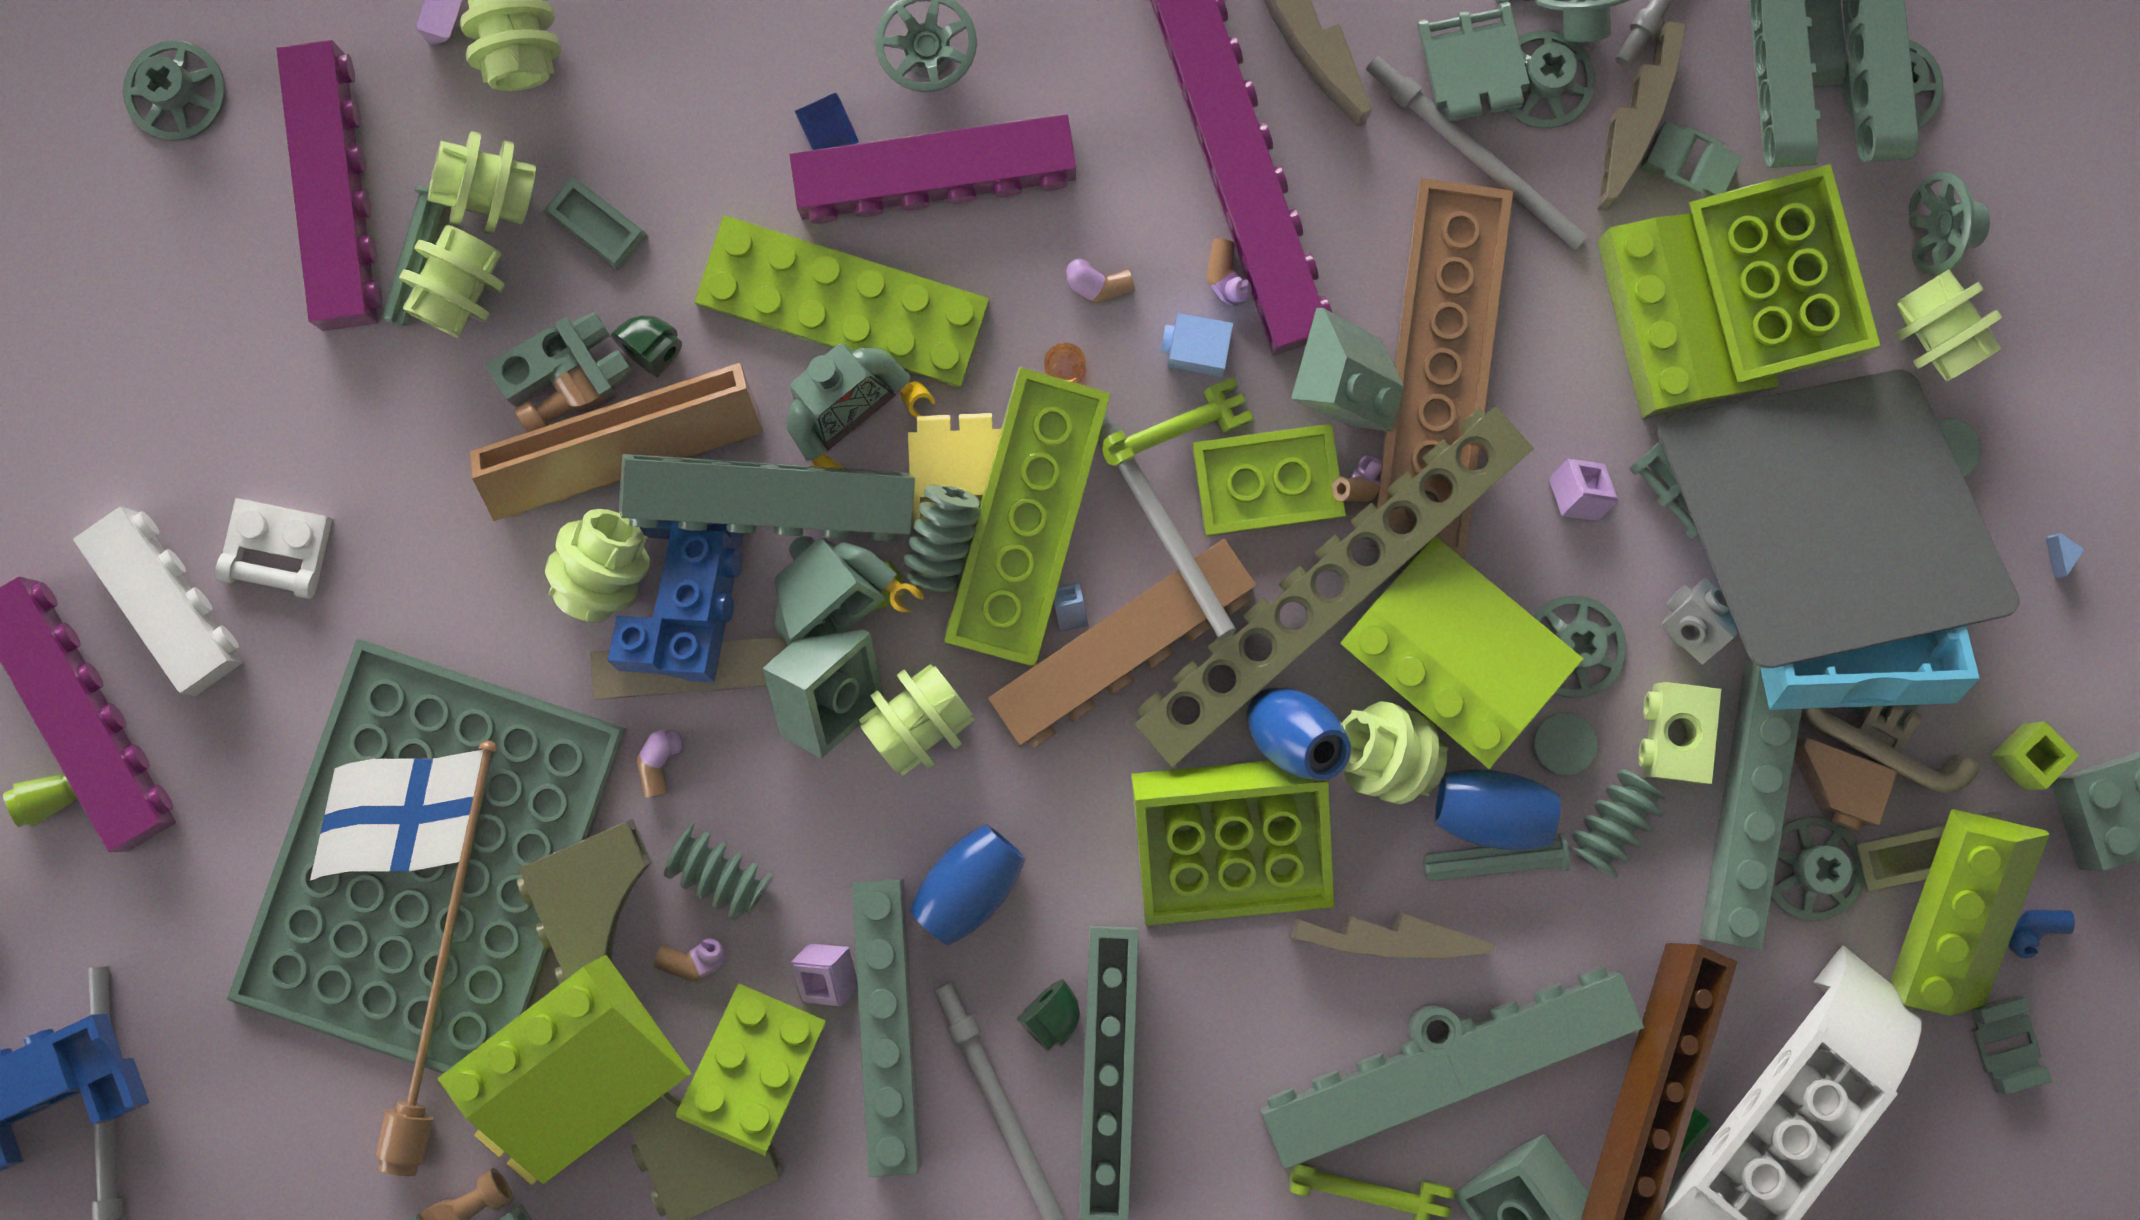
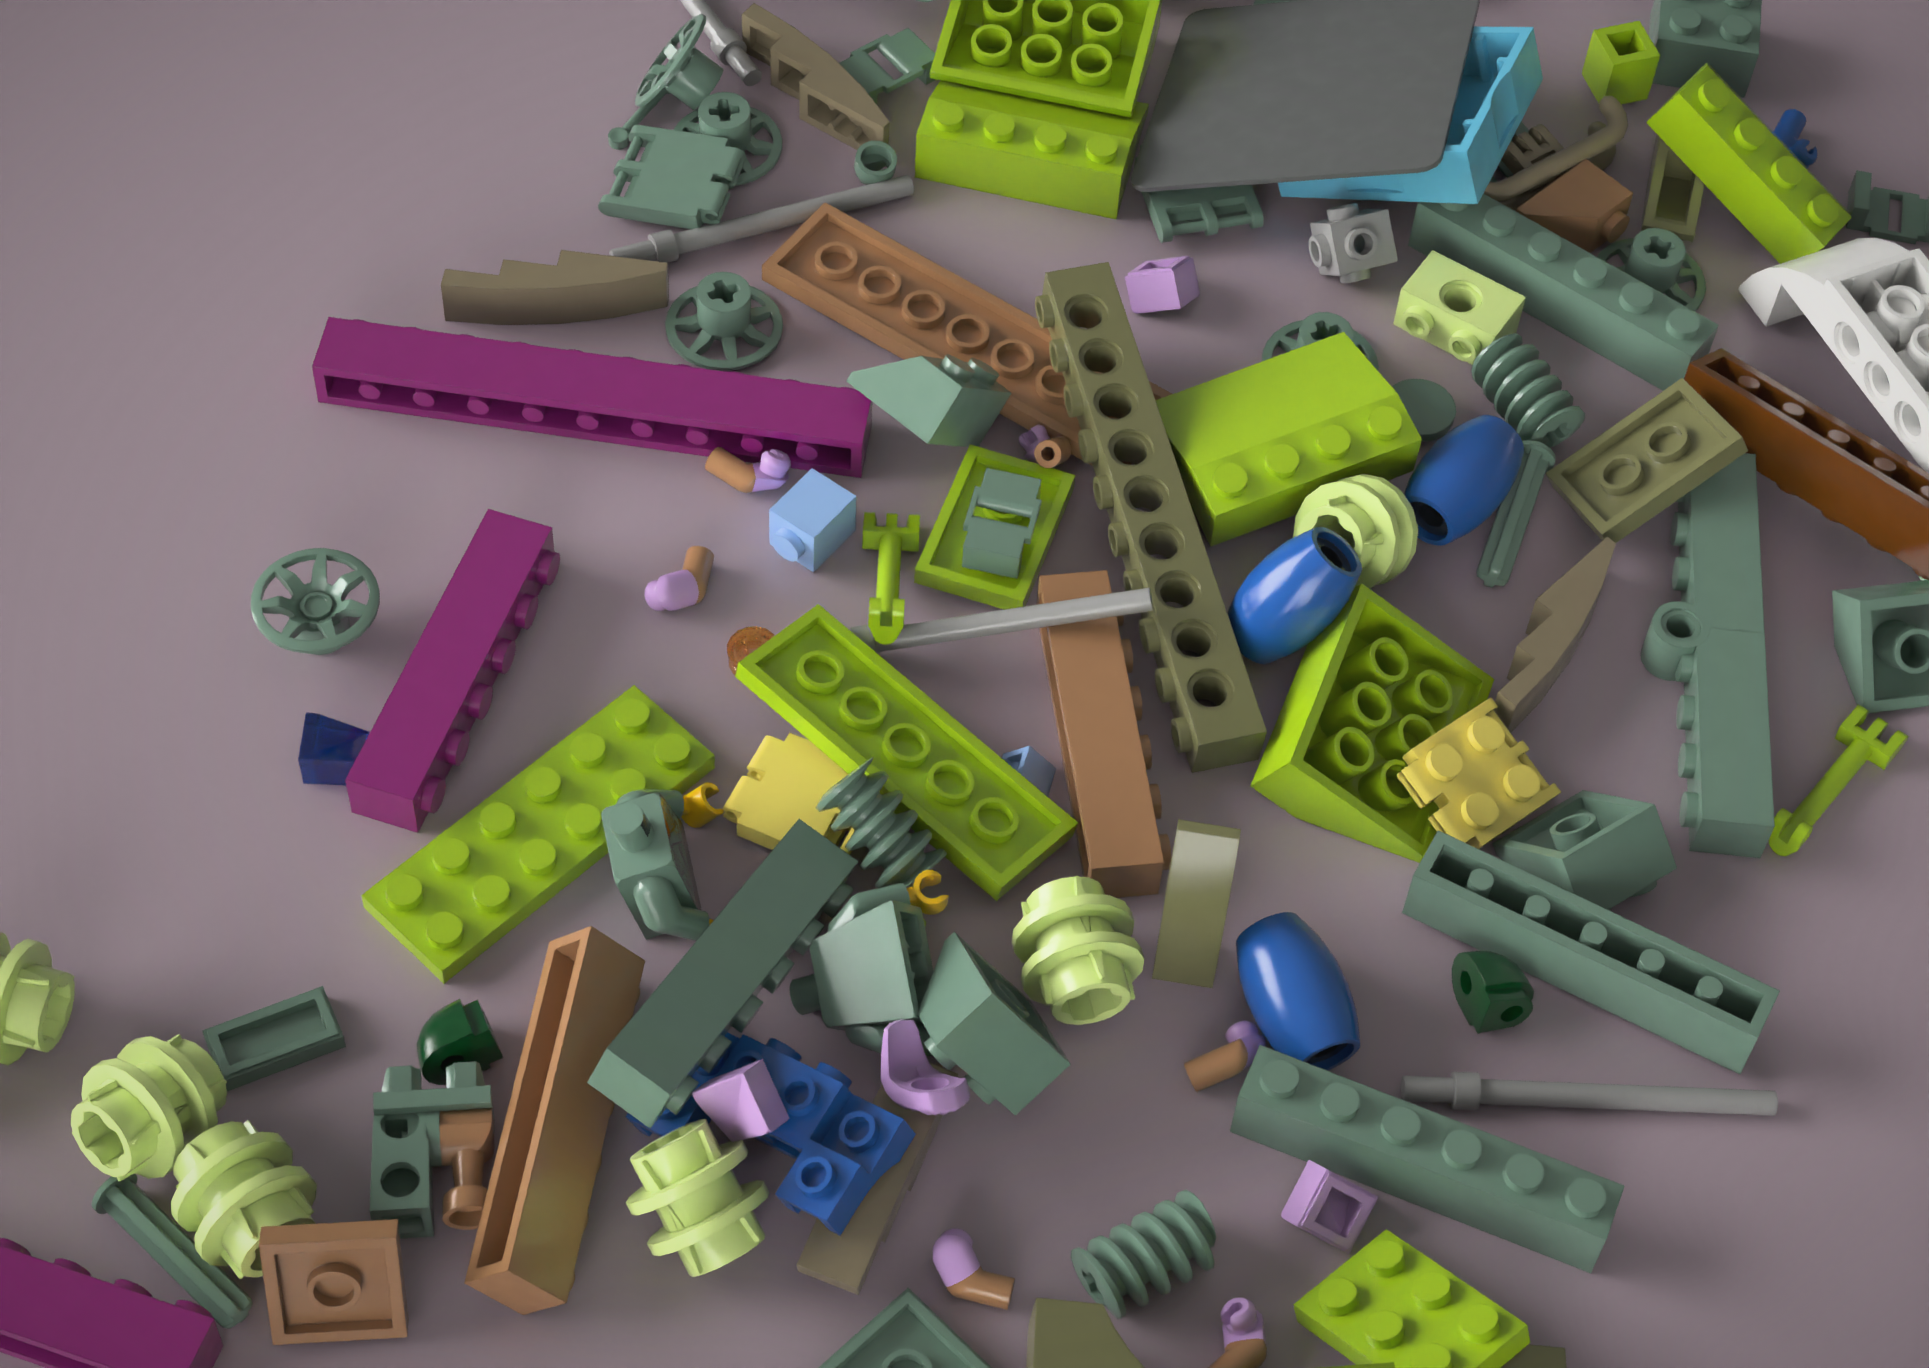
camera: 65 degrees left, 30 degrees down
(431, 380) = (334, 1281): none -> medium nougat plate
(661, 561) = (743, 1102): none -> lavender slope
(745, 673) = (911, 1078): none -> lavender hair
(899, 859) = (1226, 1060): none -> medium nougat arm
(982, 786) = (1196, 903): none -> olive slope
(1202, 1037) = (1593, 847): none -> sand green slope
(1224, 932) = (1475, 777): none -> light yellow plate
(1238, 489) = (995, 544): none -> sand green piece
(1360, 176) = (724, 315): none -> sand green wheel
(1587, 199) = (871, 159): none -> sand green hinge
(1587, 946) = (1646, 462): none -> olive plate

